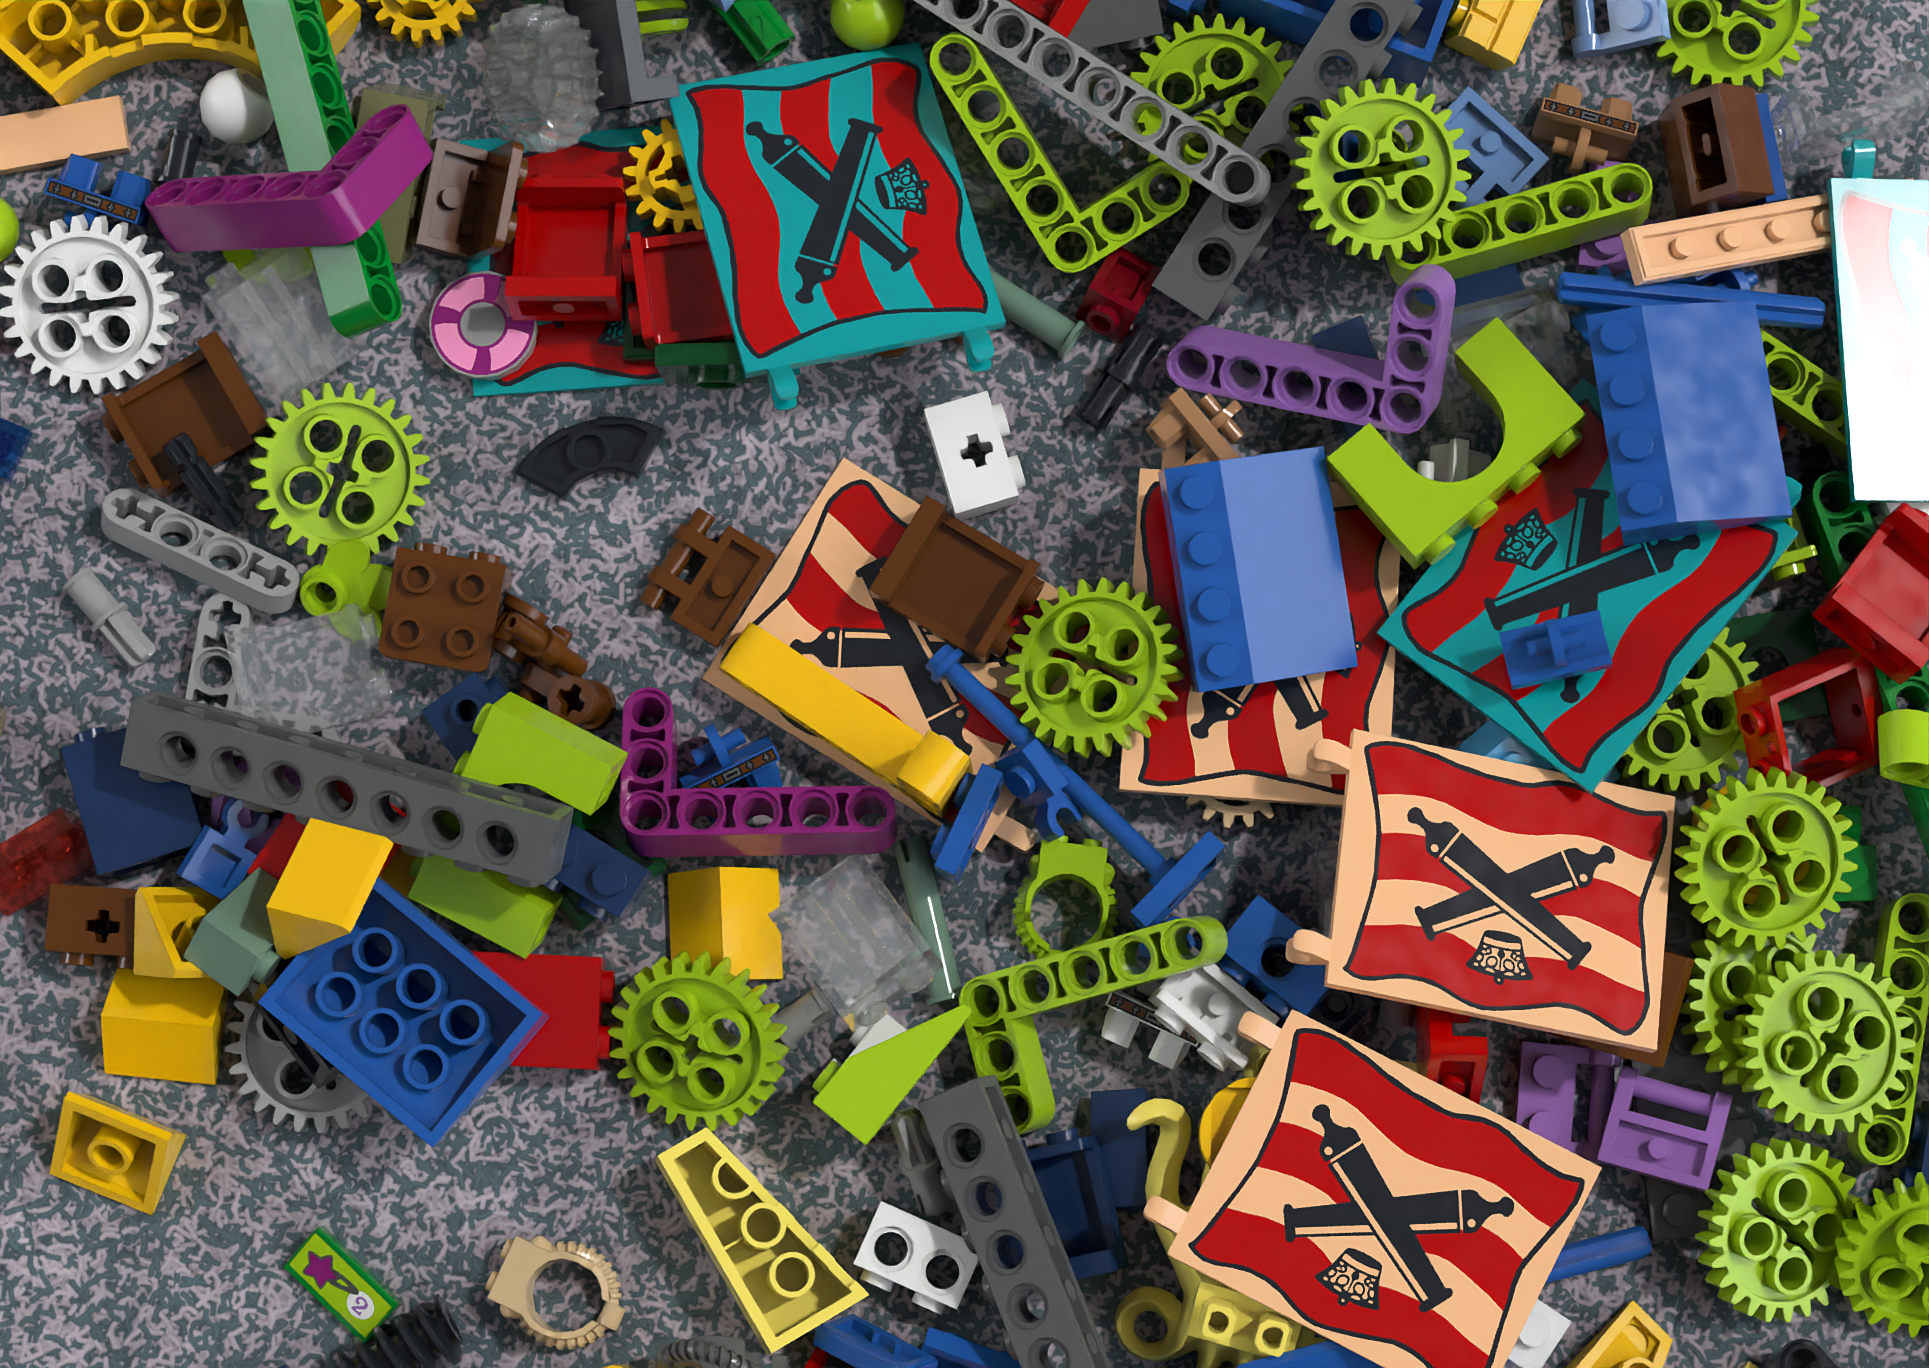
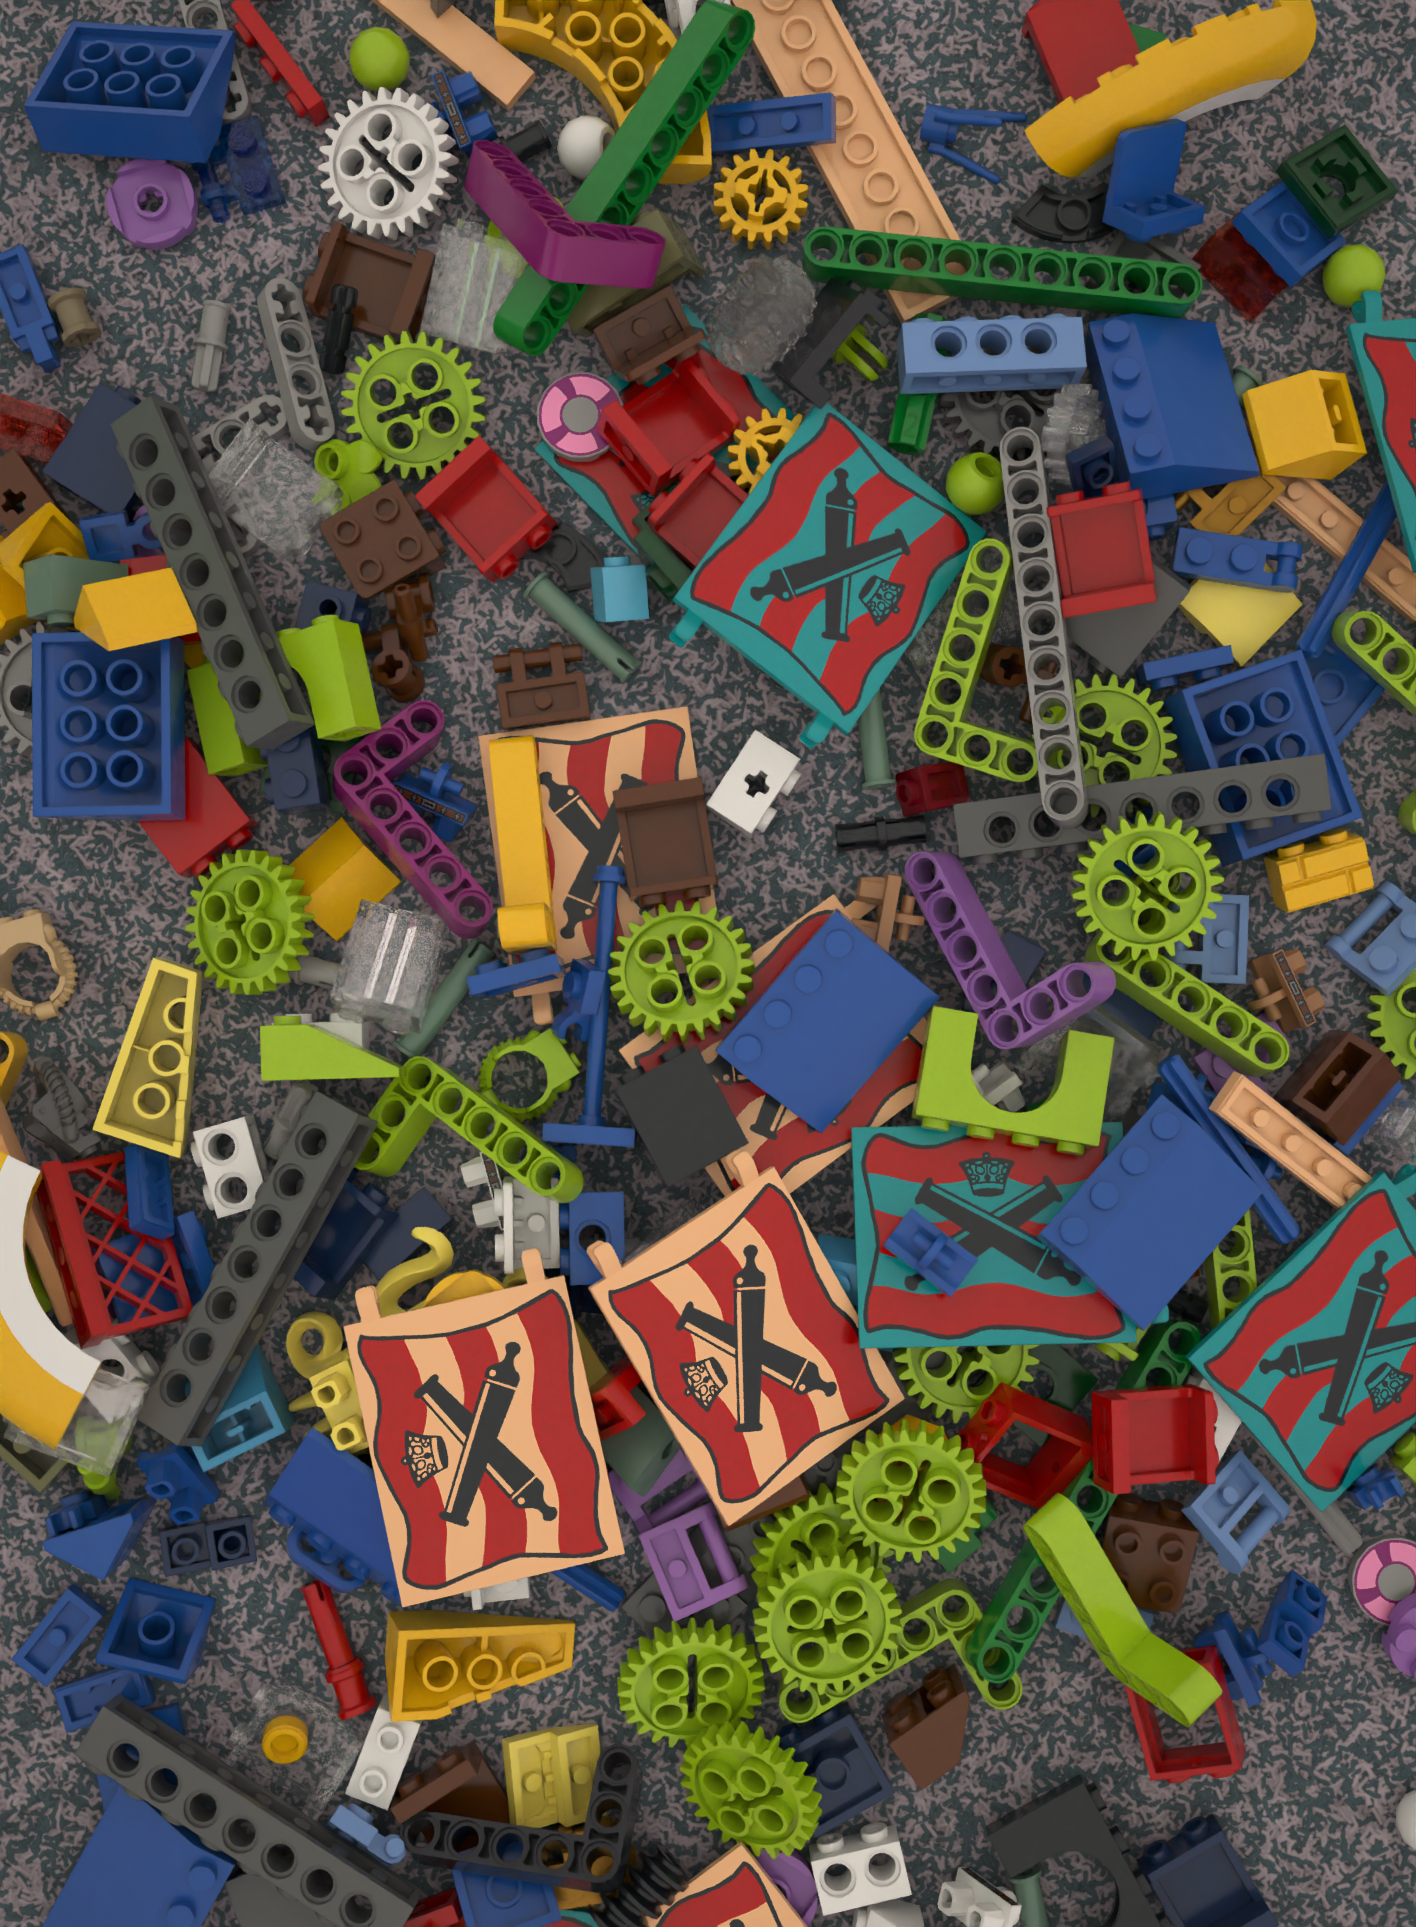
camera: 50 degrees right, 5 degrees up
(499, 487) = (487, 510): none -> red panel
(682, 426) = (619, 590): none -> medium azure brick
(683, 492) = (581, 626): none -> sand green pin
(1077, 127) = (1015, 673): none -> reddish brown piece
(1230, 777) = (680, 1114): none -> black panel
(1519, 1078) = (642, 1450): none -> sand green torso

